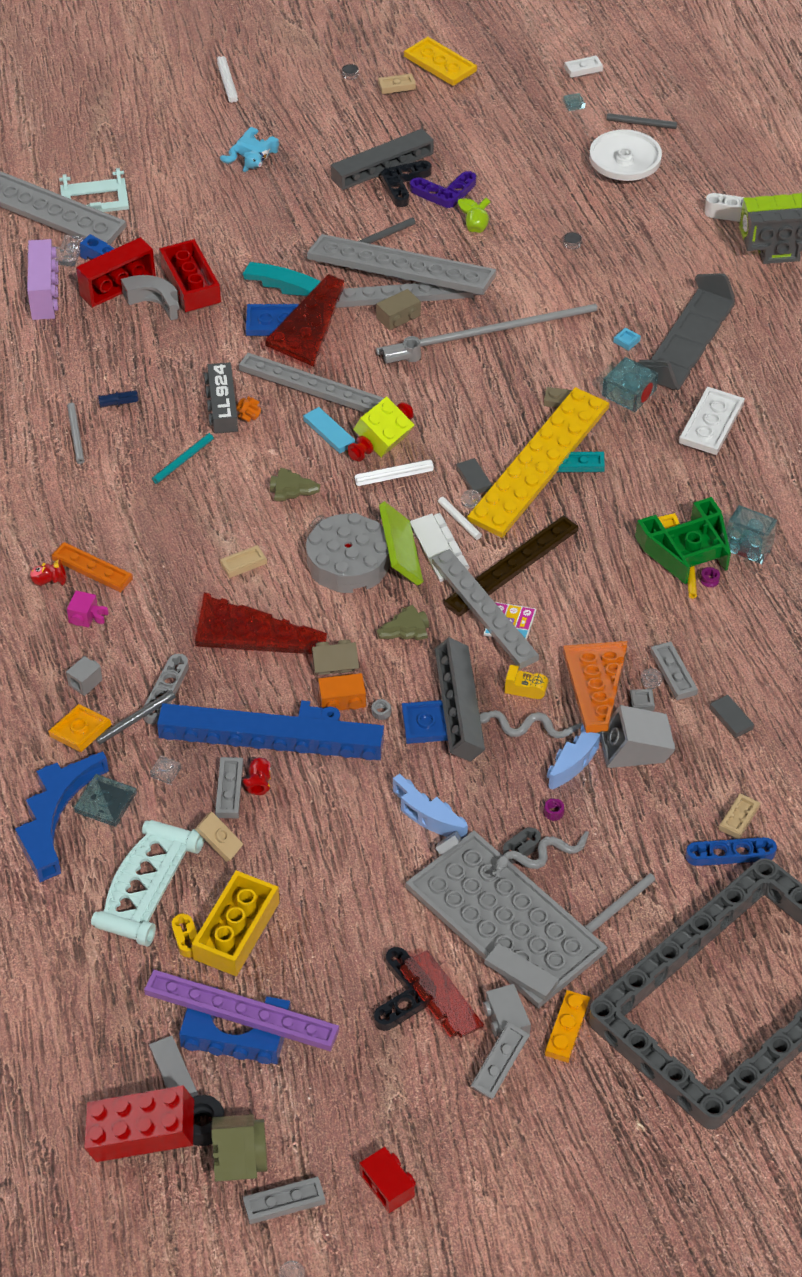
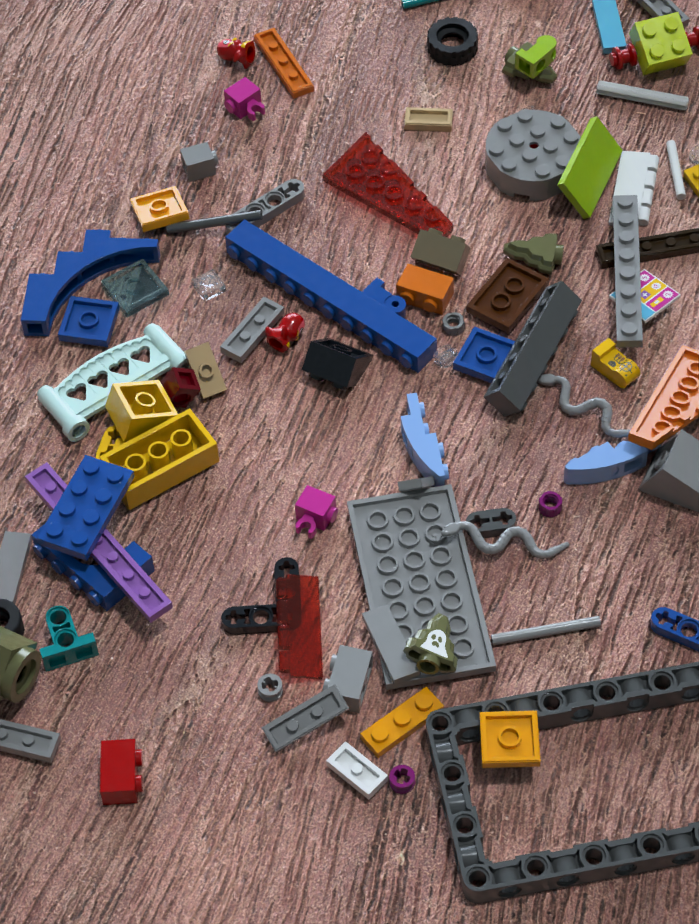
camera: 35 degrees right, 5 degrees up
(89, 844) = (88, 321): none -> blue plate
(192, 891) = (138, 407): none -> yellow brick
(208, 860) = (181, 386): none -> dark red brick
(216, 988) = (85, 507): none -> blue plate
(218, 505) = (452, 28): none -> black tyre
(264, 1096) = (62, 634): none -> teal tile
(300, 479) = (537, 57): none -> lime leg
(316, 781) = (336, 362): none -> black slope
(386, 901) = (315, 510): none -> dark pink brick
(395, 736) = (445, 356): none -> clear plate
(407, 668) = (507, 295): none -> reddish brown plate
(452, 1060) = (264, 692): none -> light grey bush
(557, 956) = (432, 647): none -> olive rock
(563, 1079) = (357, 770): none -> white plate
(594, 1071) = (405, 787): none -> magenta bush
(662, 993) = (509, 739): none -> light orange tile

